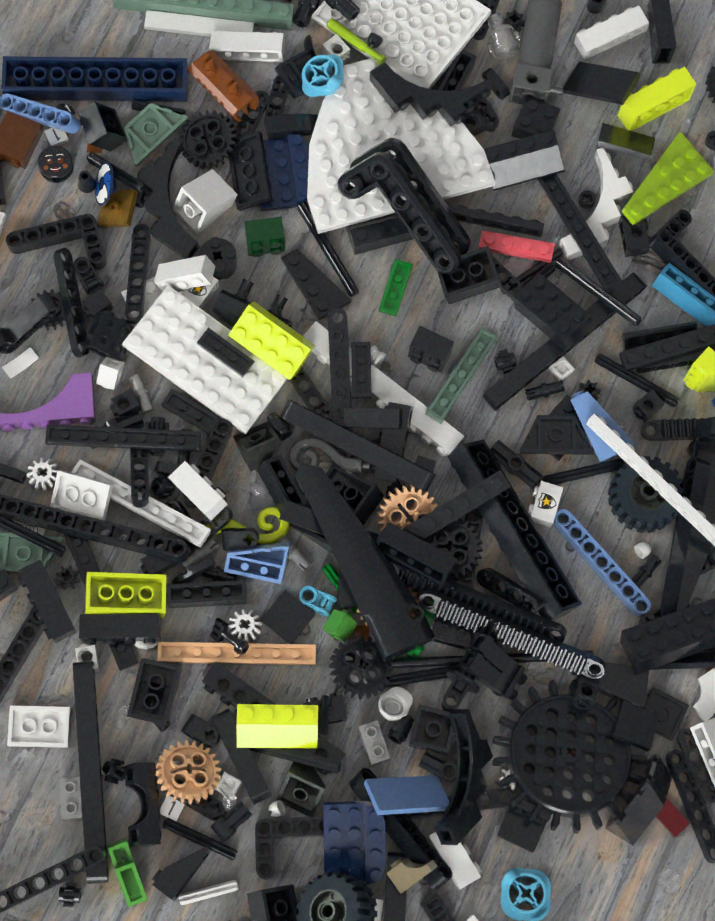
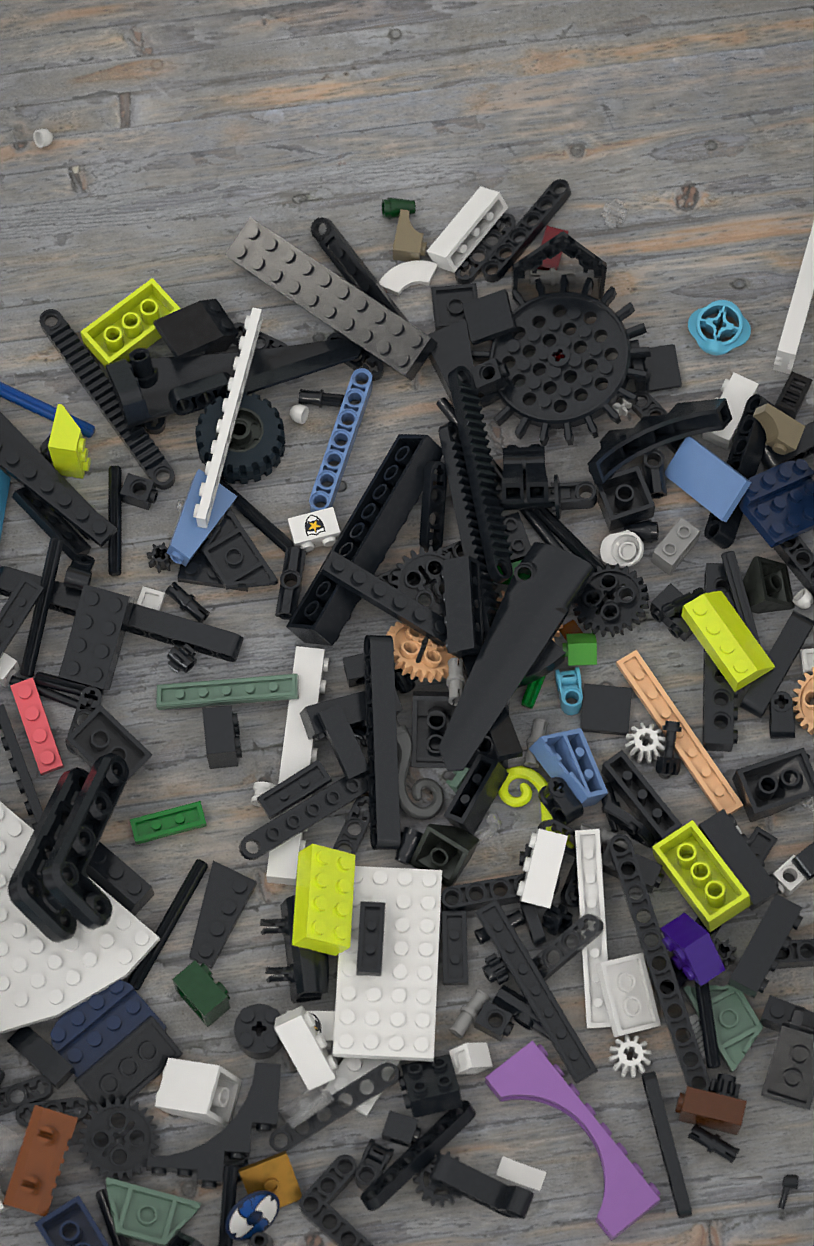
camera: 115 degrees left, 5 degrees down
(77, 549) = (692, 949): none -> dark purple brick
(148, 253) = (305, 1106): none -> clear tile
(367, 518) = (455, 680): none -> light grey pin
(607, 329) = (79, 572): none -> black piece

